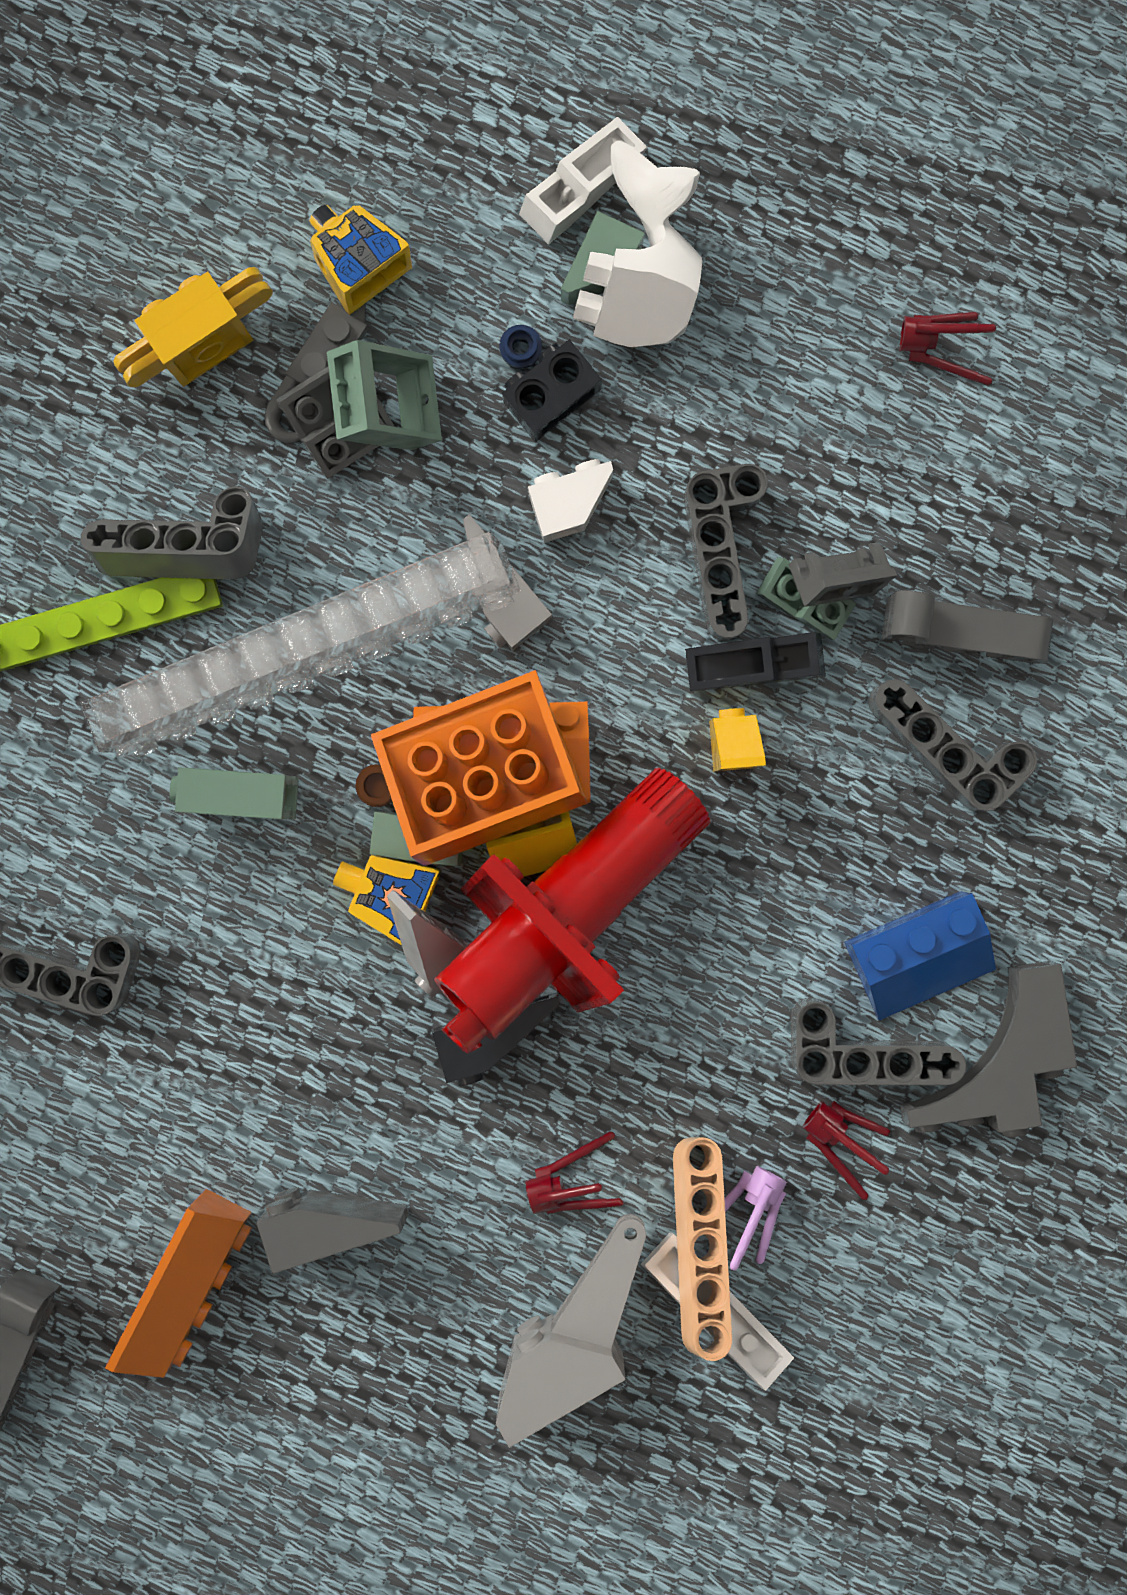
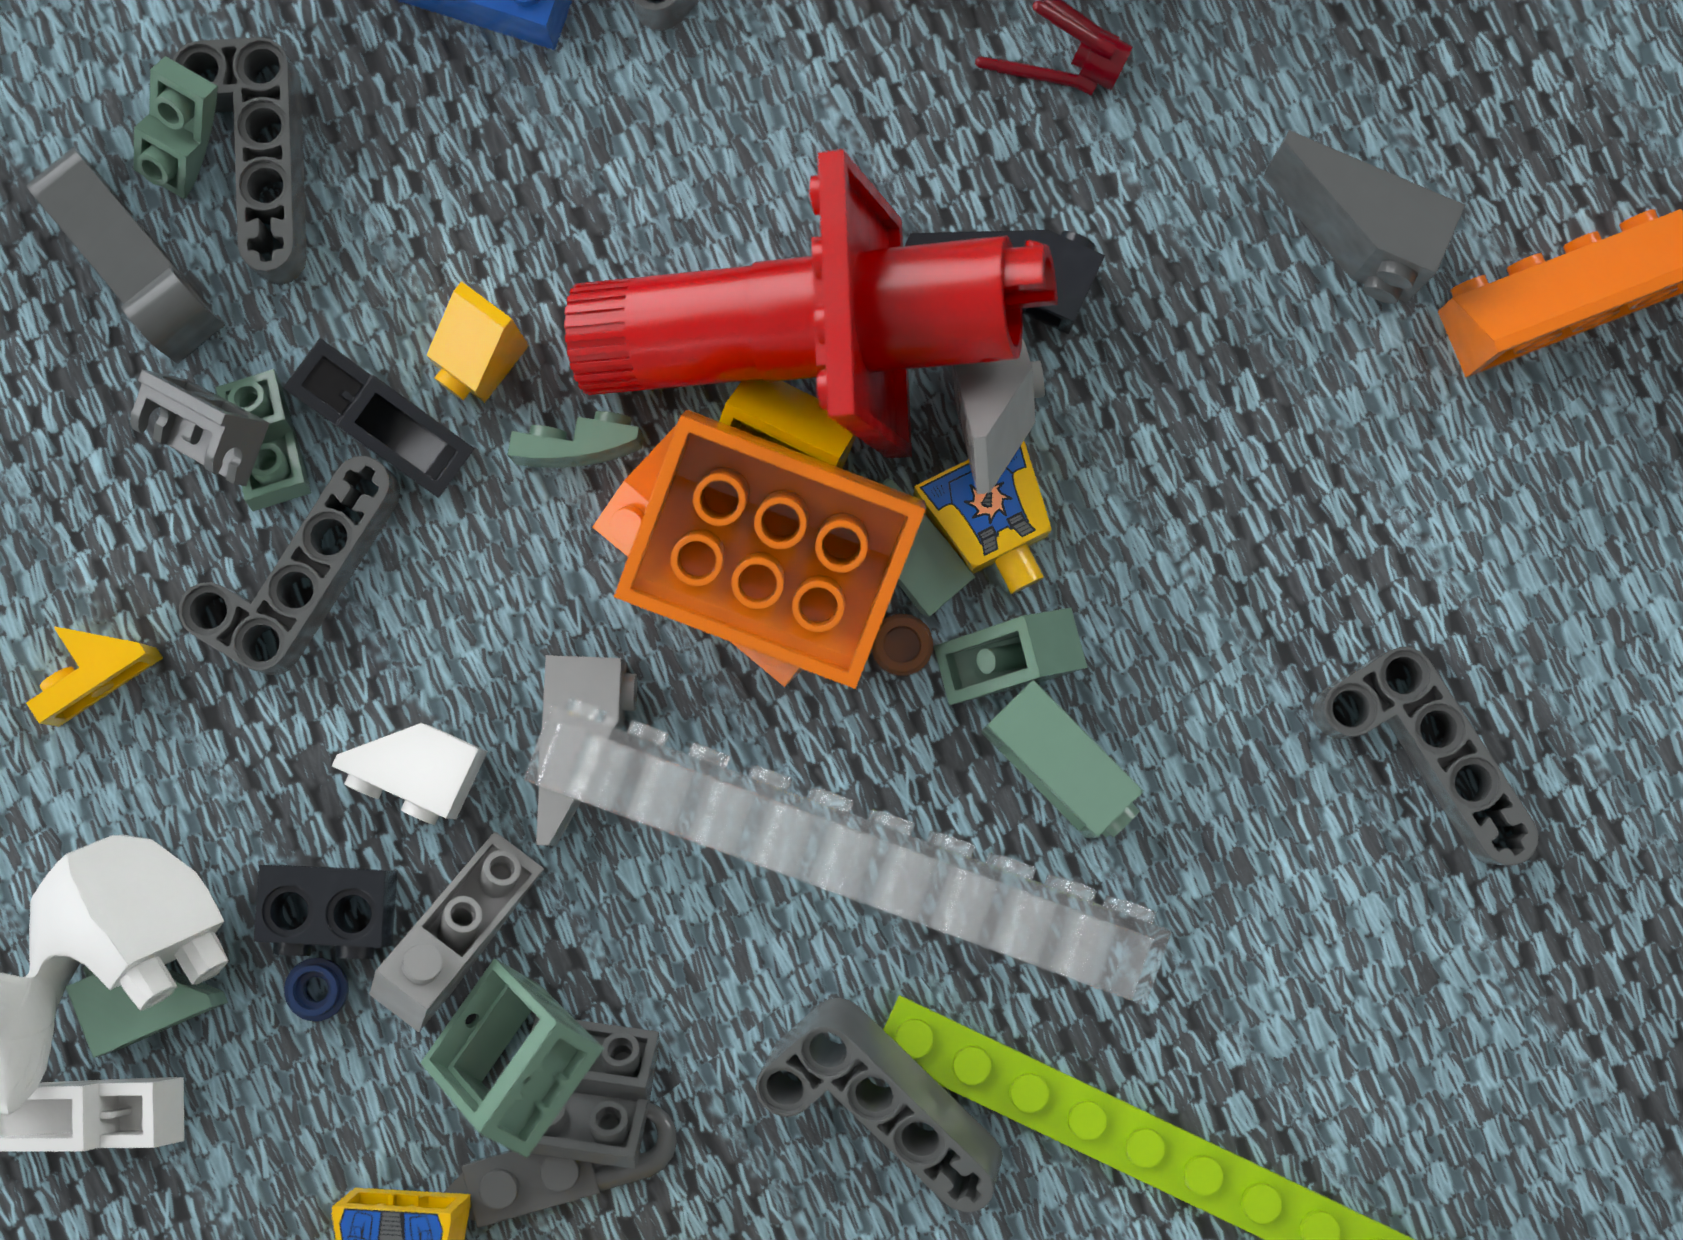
camera: 140 degrees left, 5 degrees down
(313, 828) = (1010, 655): none -> sand green slope
(474, 437) = (454, 932): none -> light grey slope
(628, 753) = (594, 442): none -> sand green slope
(780, 410) = (103, 667): none -> yellow slope
(1001, 718) = (177, 130): none -> sand green slope

